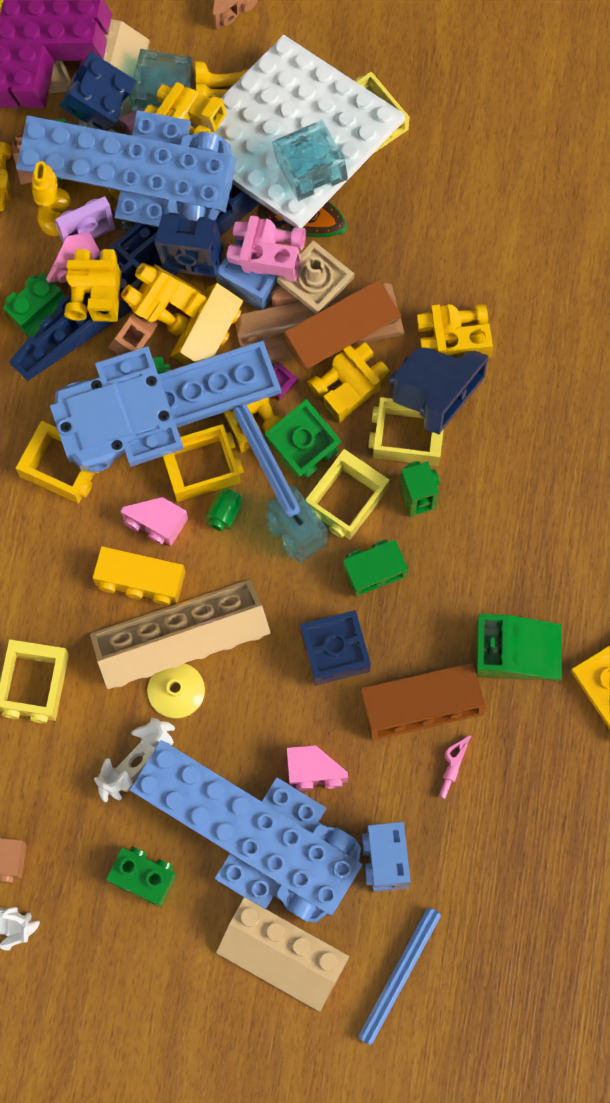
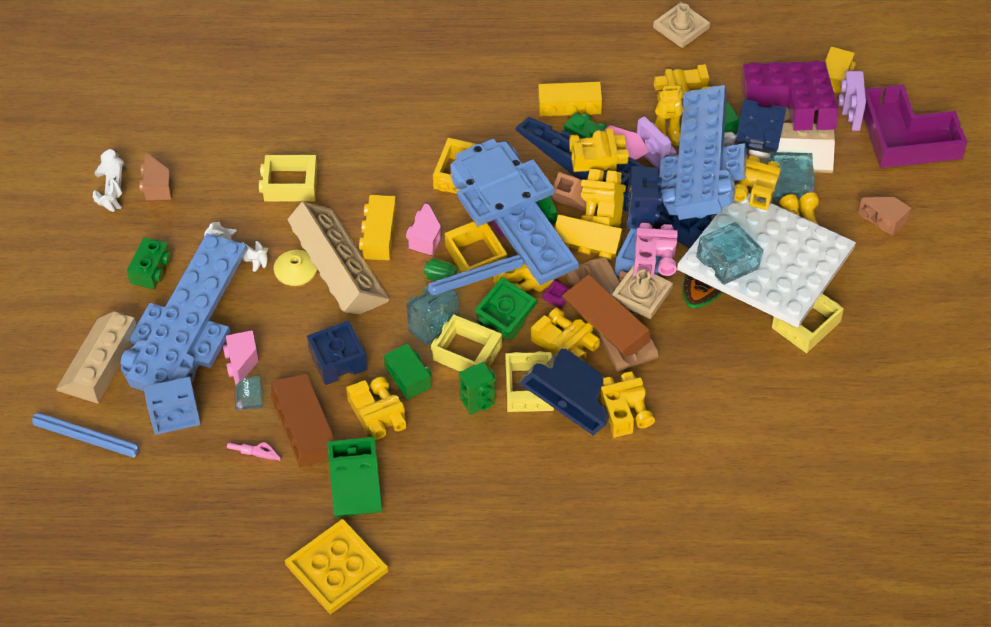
camera: 80 degrees right, 20 degrees down
(372, 765) = (249, 394): none -> clear light blue brick
(426, 612) = (379, 414): none -> yellow hips

